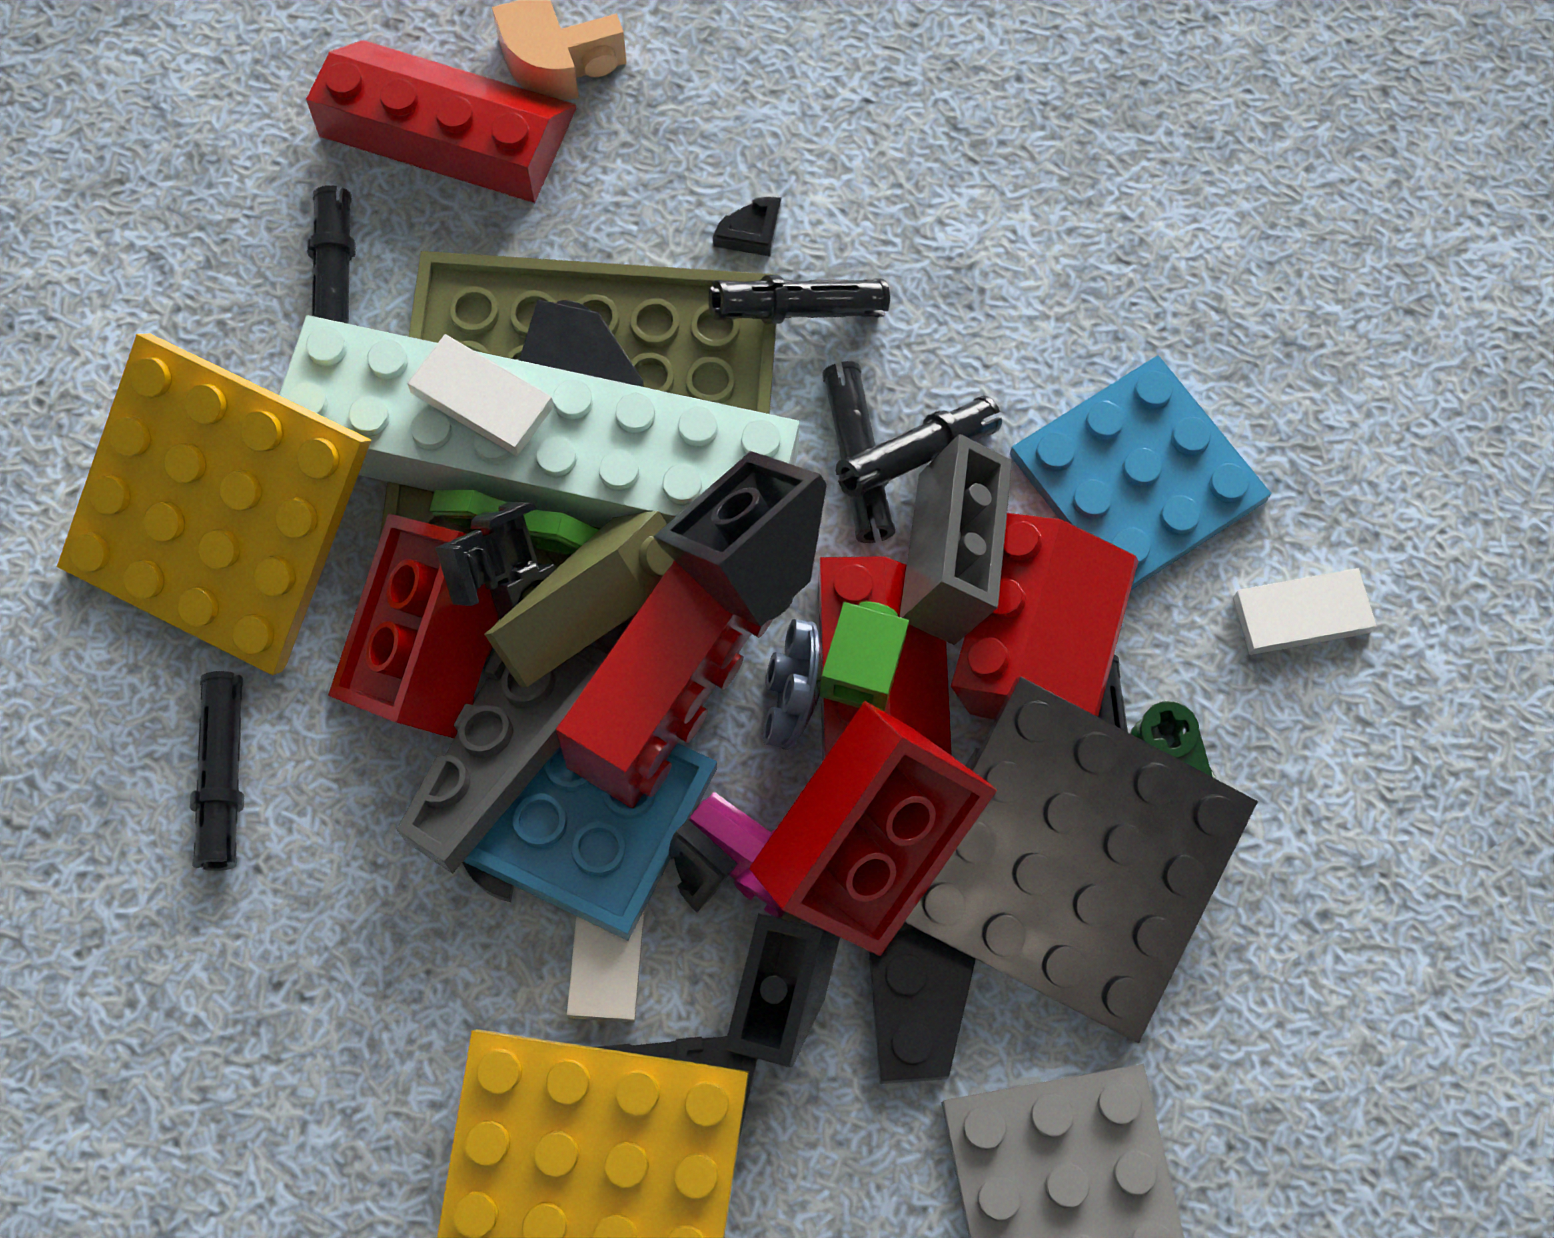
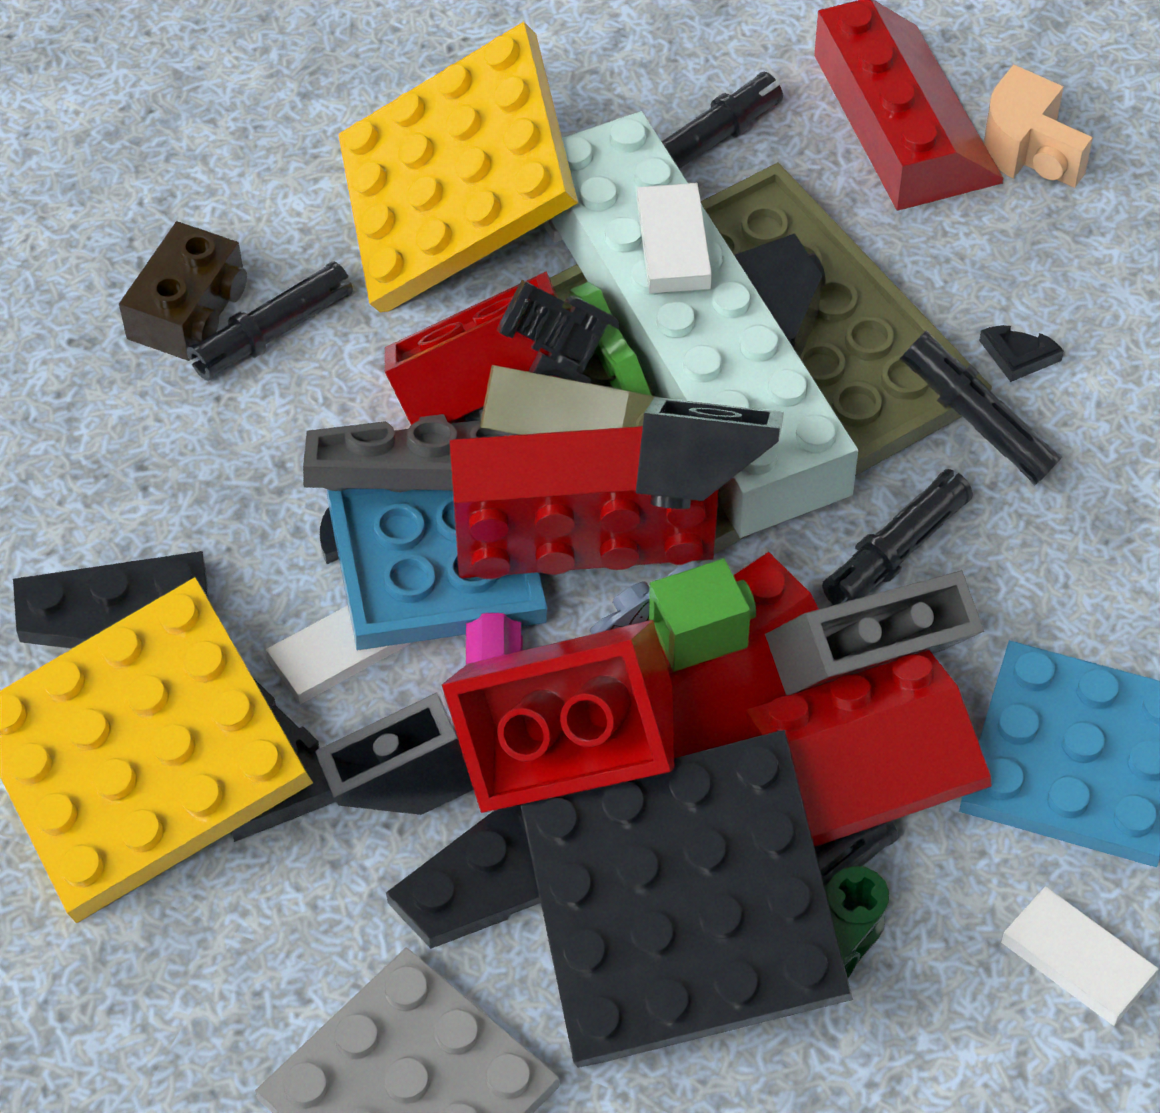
camera: 55 degrees right, 15 degrees down
(123, 822) = (183, 290): none -> dark brown brick
(405, 1116) = (79, 603): none -> black wing
(699, 865) = (454, 650): black tile -> none
(916, 446) = (929, 561): black pin -> none

